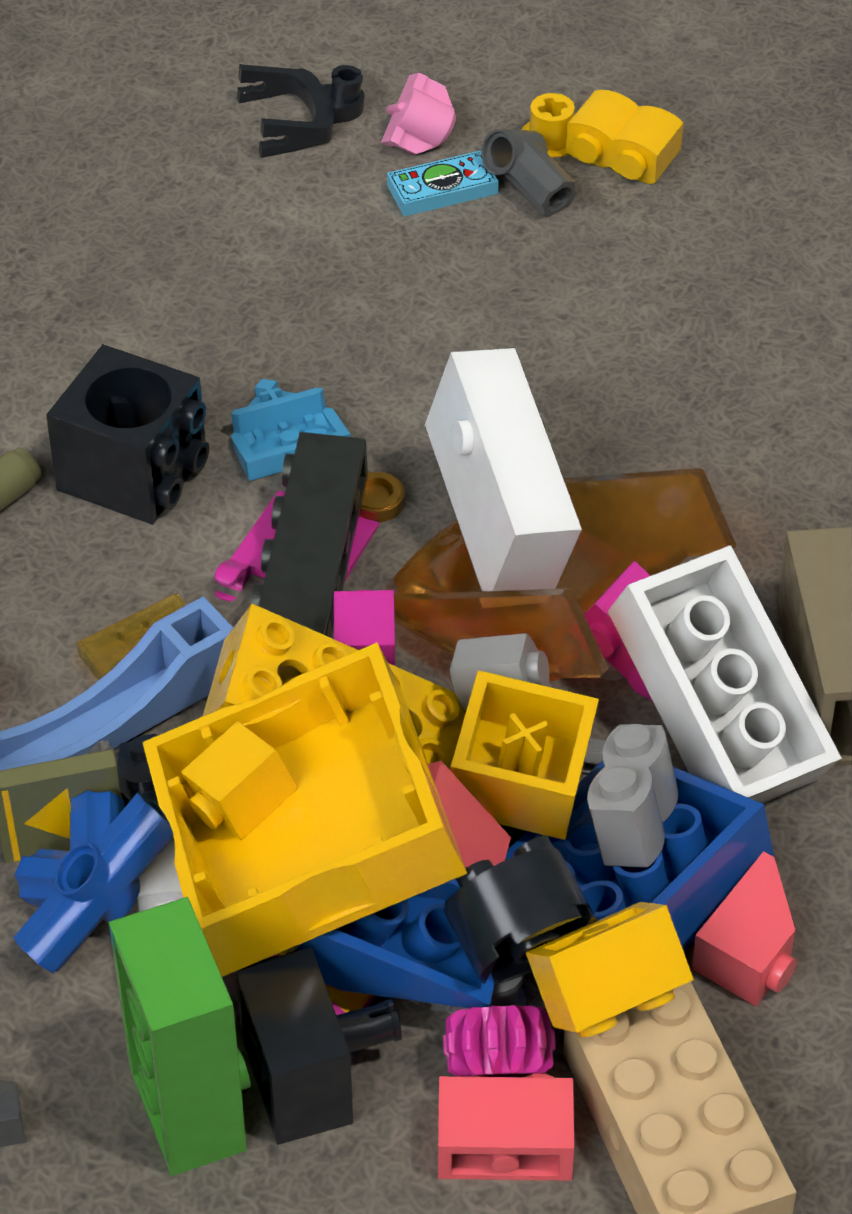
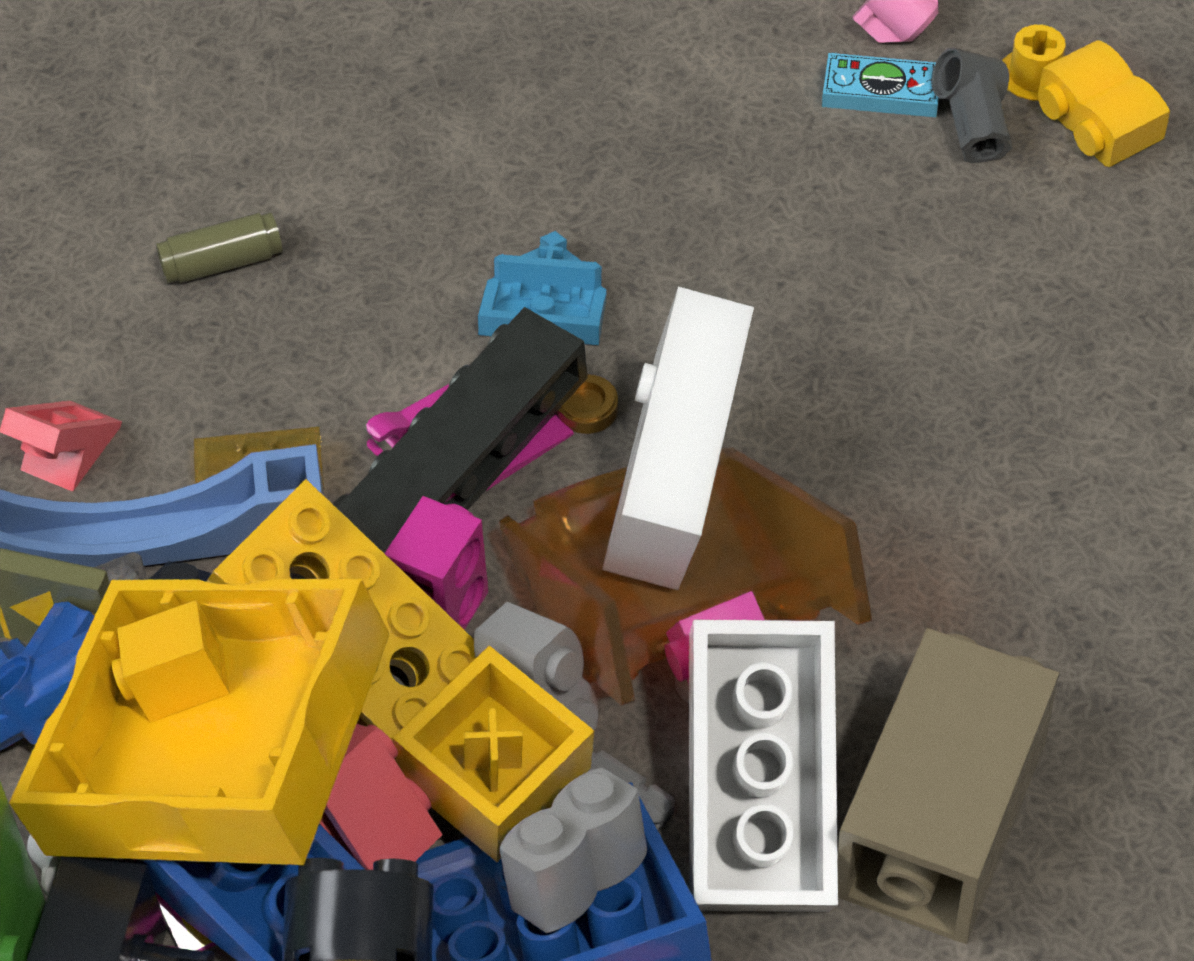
camera: 30 degrees right, 5 degrees up
(128, 434) = (371, 240): black brick -> none

